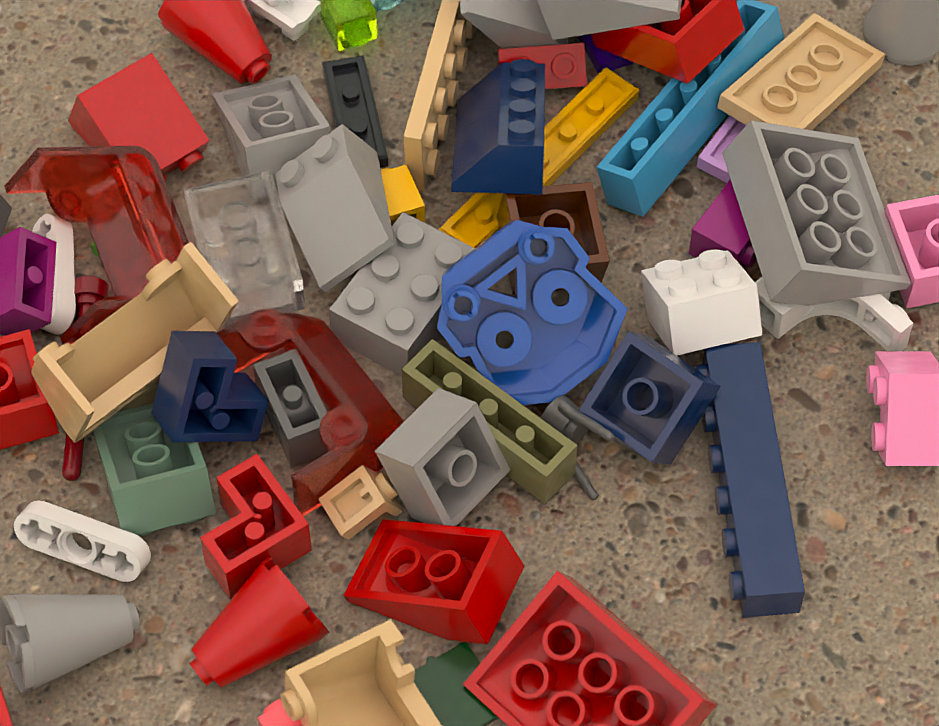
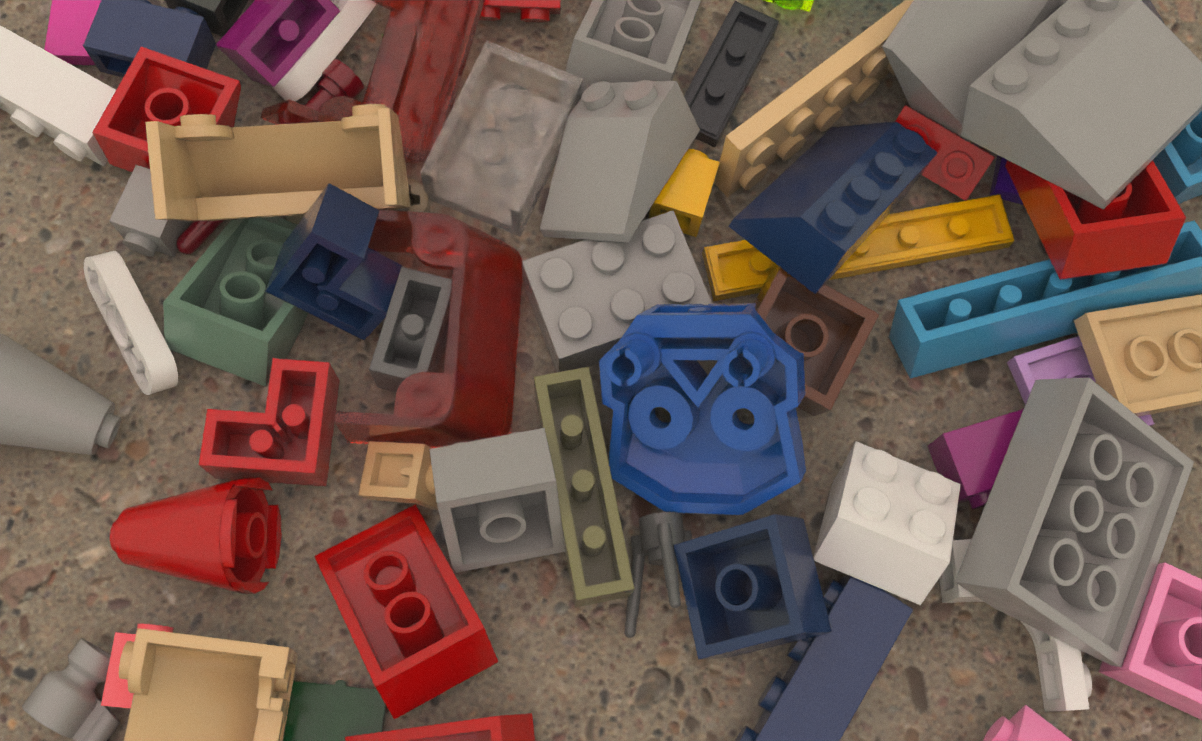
camera: 30 degrees right, 15 degrees up
(34, 462) = (136, 218): none -> light grey brick

